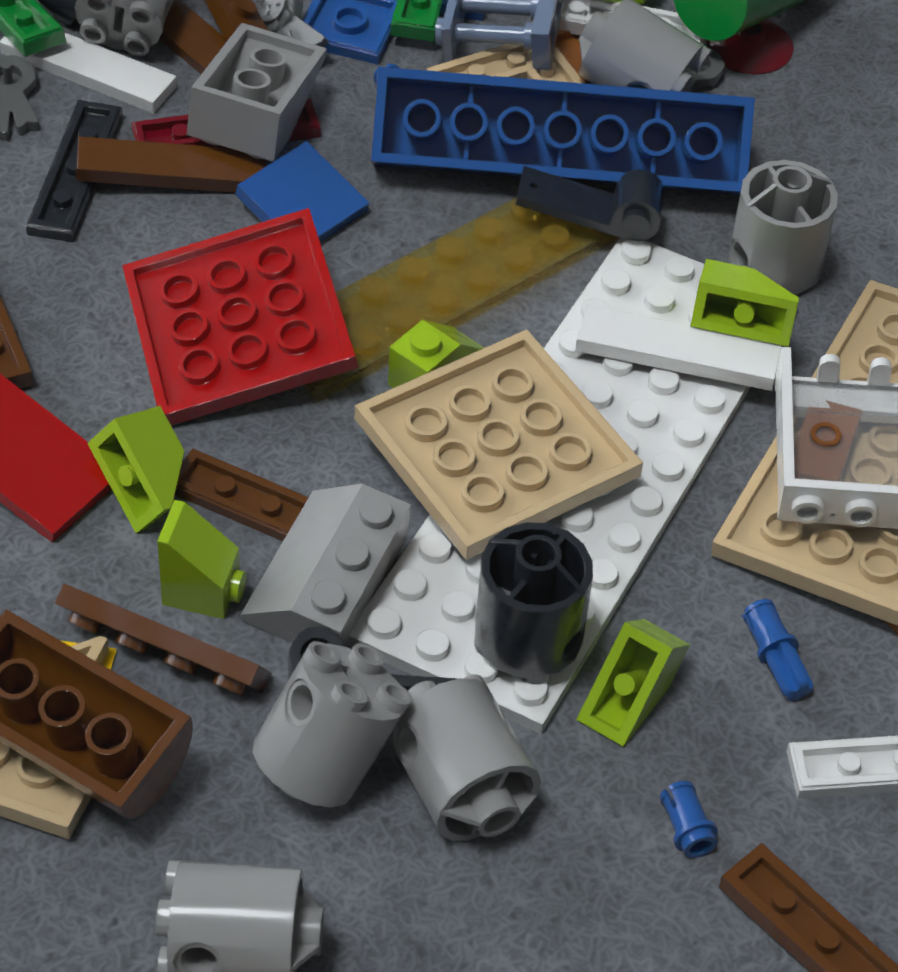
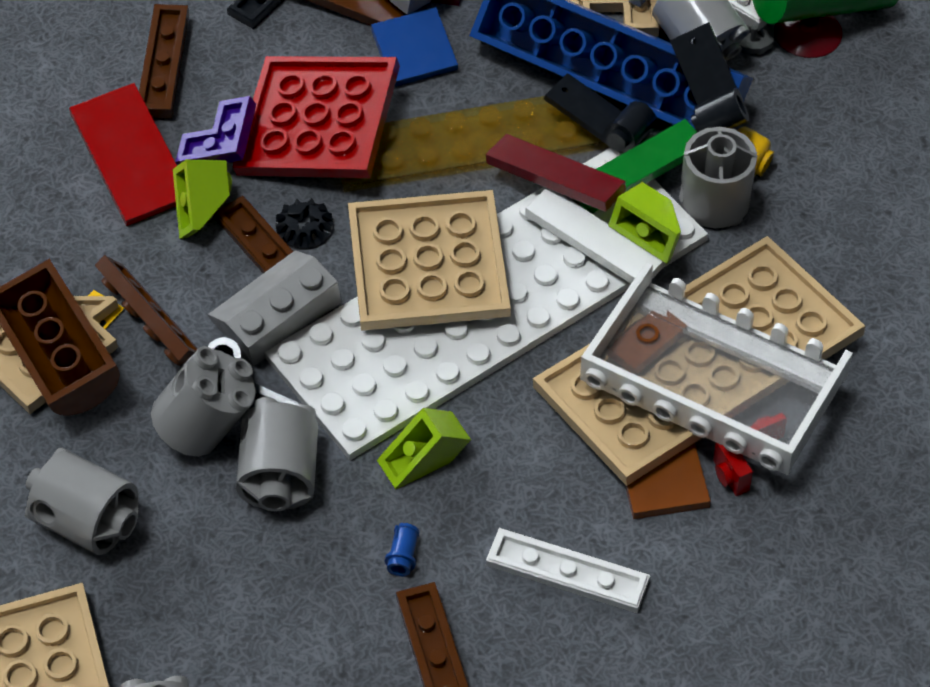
camera: 30 degrees right, 5 degrees up
(134, 380) = (226, 139): none -> dark purple plate
(198, 564) = (192, 271): lime slope -> none
(275, 465) = (313, 232): none -> black gear
(425, 350) = (430, 179): lime slope -> none
(533, 600) = (369, 371): black cylinder -> none
(589, 284) = (556, 172): none -> dark red tile
(675, 248) = (649, 158): none -> green tile
(717, 115) = (709, 80): none -> black door
(778, 649) = (533, 465): blue axle -> none

